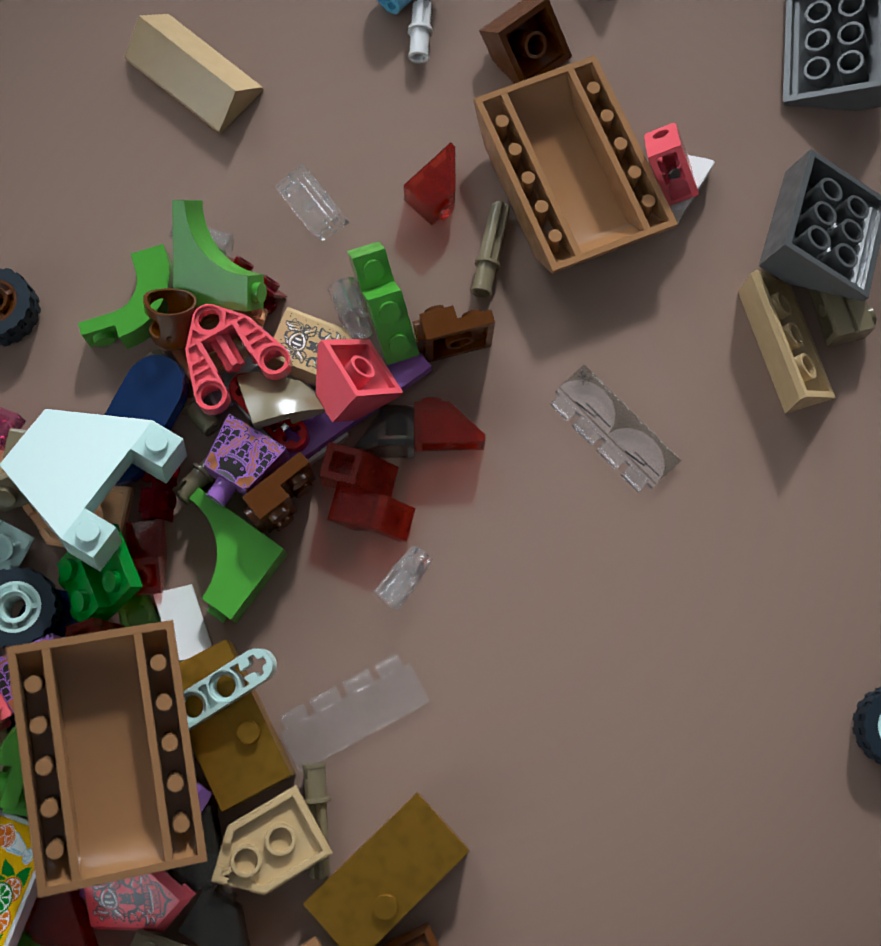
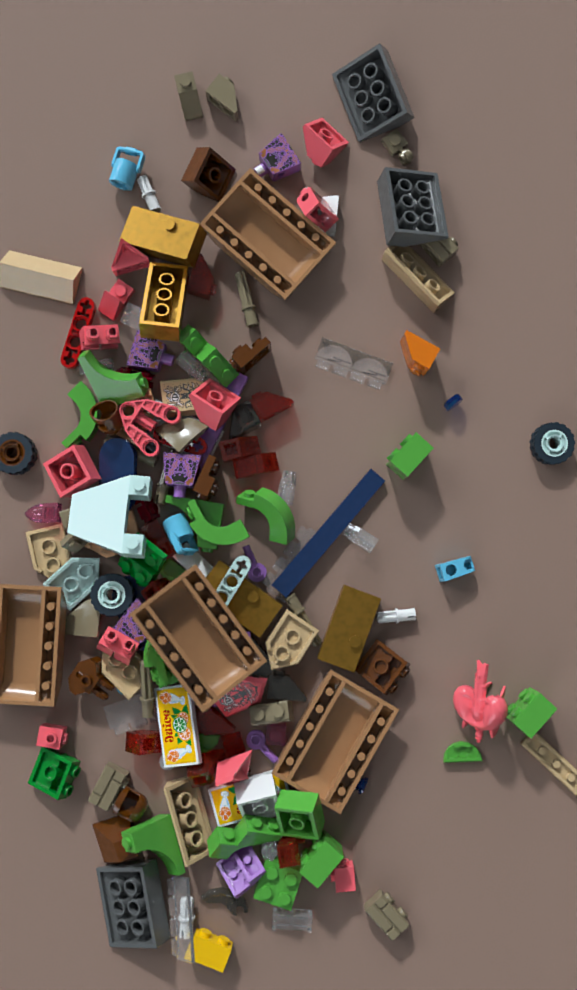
camera: 25 degrees left, 10 degrees up
(69, 373) = (72, 471): none -> coral brick
(186, 560) = (178, 532): none -> medium azure piece
(196, 173) = (74, 332): none -> red beam
(225, 185) = (104, 335): none -> coral hips
(259, 602) = (224, 535): none -> bright green arch
(281, 156) = (115, 300): none -> coral slope
(281, 692) = (257, 571): none -> medium lavender plate
(292, 256) = (149, 354): none -> torso
(338, 103) = (128, 259): none -> coral slope
(356, 186) = (164, 302): none -> pearl gold brick
(364, 606) = (275, 510): none -> bright green arch
(409, 94) = (164, 236): none -> brick
(433, 688) = (328, 533): none -> dark blue tile
(482, 897) = (396, 615): none -> white axle
(486, 724) = (360, 537): none -> clear hinge
(626, 864) = (454, 568): none -> medium azure leg
(635, 624) = (410, 455): none -> bright green brick
(645, 70) = (278, 160): none -> torso
(726, 76) = (322, 142): none -> coral slope
(732, 460) = (418, 353): none -> orange slope
(754, 571) = (453, 402): none -> clear blue tile
(842, 131) = (395, 144): none -> dark tan plate

